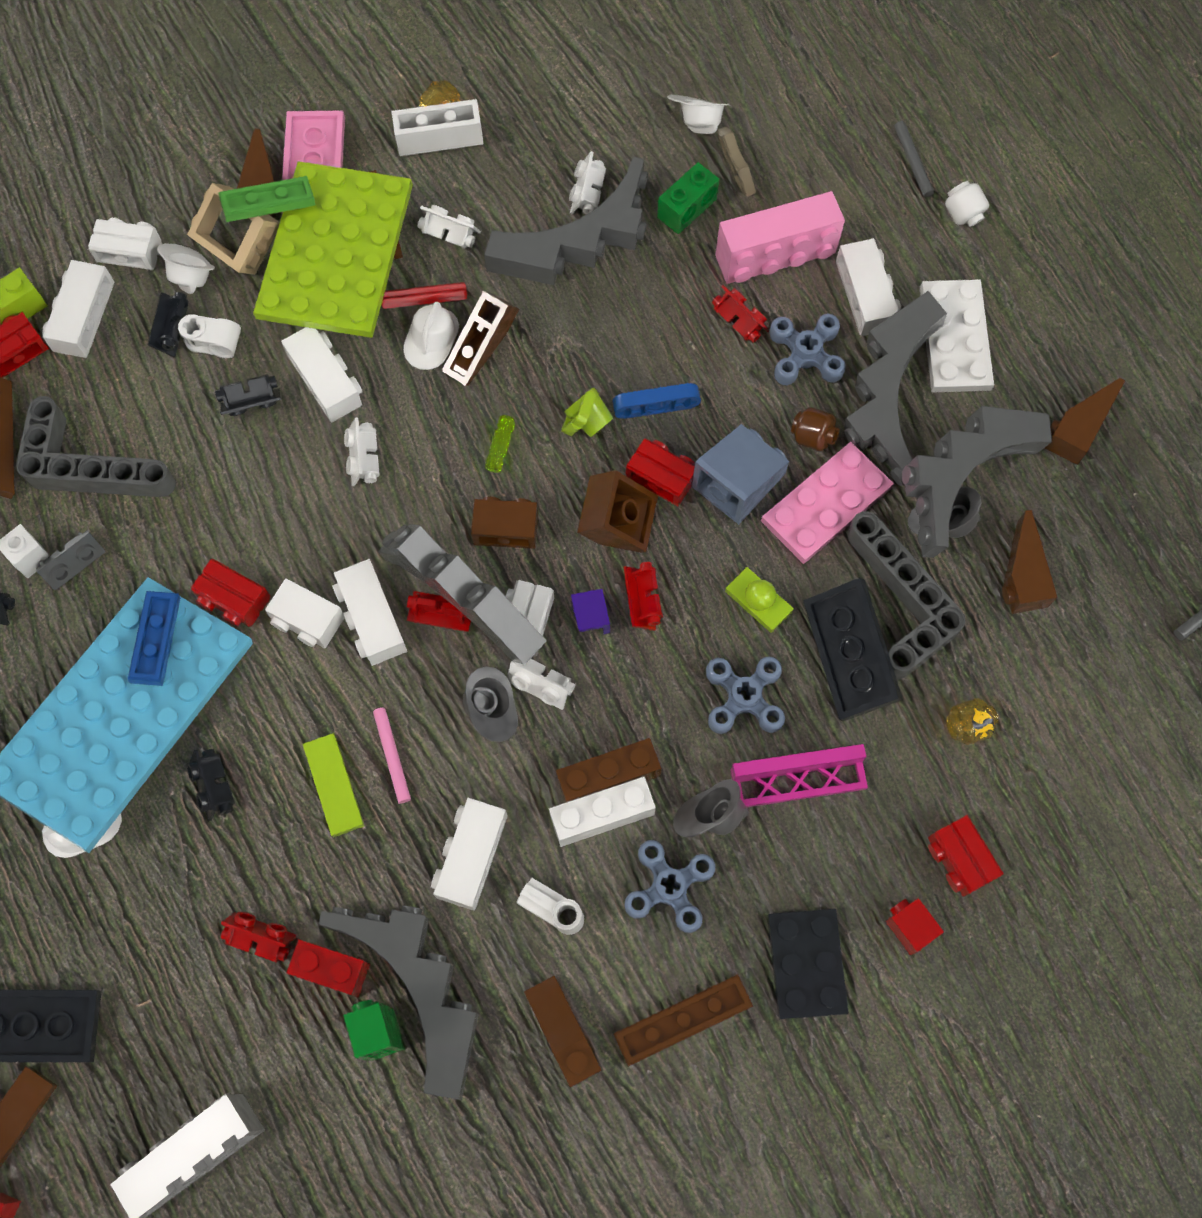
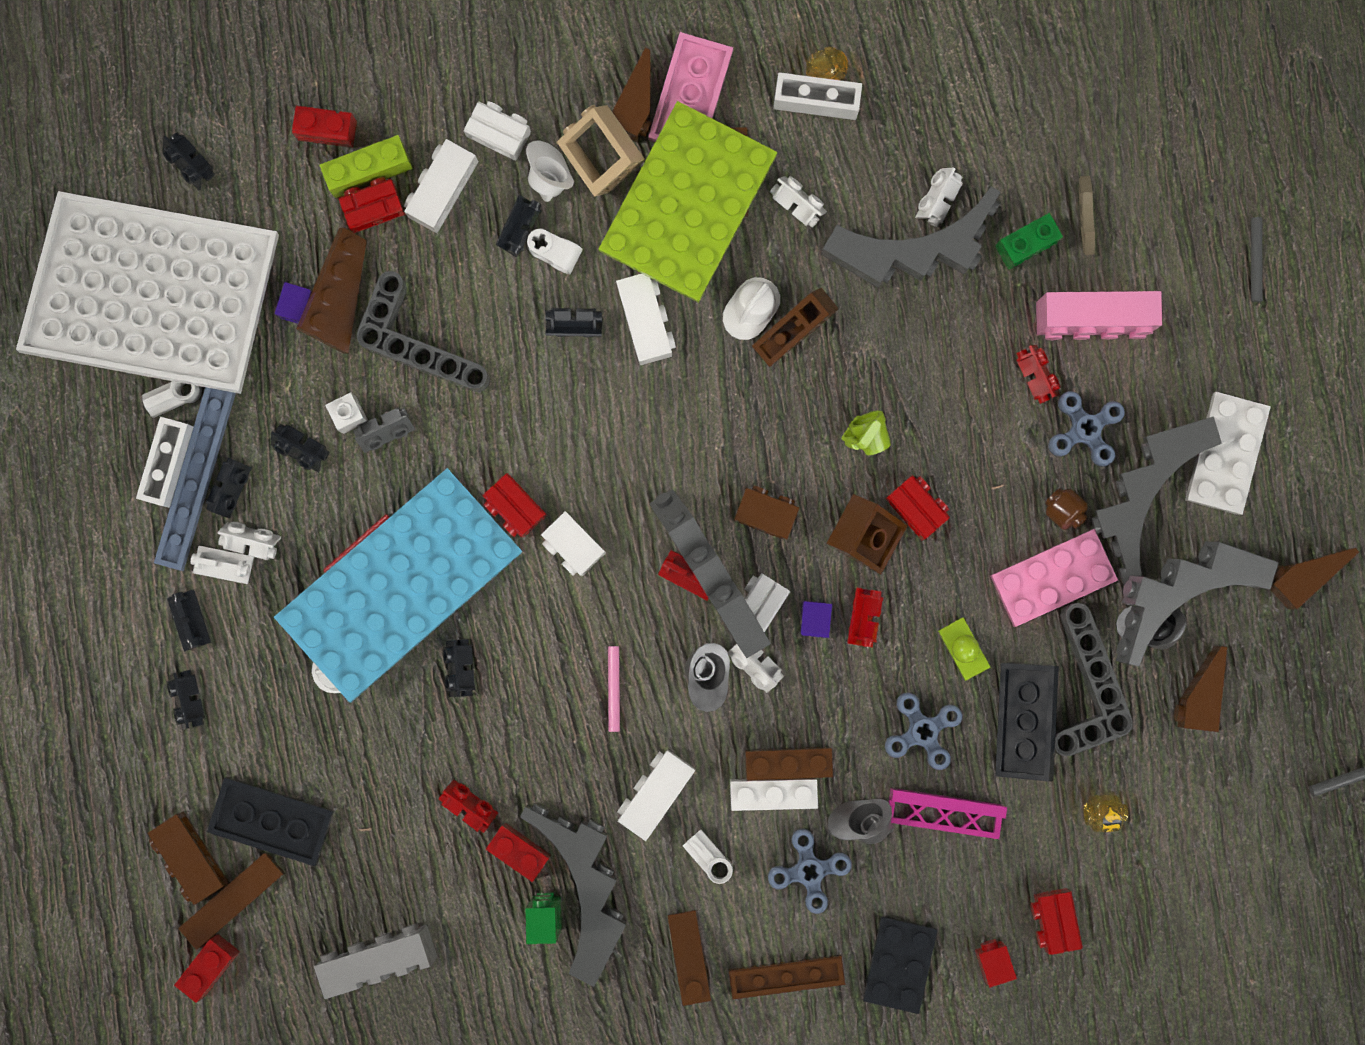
camera: 20 degrees right, 15 degrees up
(154, 638) = (442, 531): blue tile -> none
(266, 198) = (639, 141): bright green tile -> none
(333, 785) = (559, 699): lime tile -> none
(360, 464) = (655, 418): white hinge -> none
(368, 613) = (627, 560): white brick -> none
(424, 295) = (759, 265): red axle -> none
(500, 443) = (783, 434): clear neon green axle -> none
(656, 400) = (934, 437): blue beam -> none
(699, 114) = (1070, 149): white piece -> none
(739, 472) = (987, 530): sand blue slope -> none
(866, 284) = (1164, 383): white brick -> none
(967, 204) = (1287, 326): white head -> none

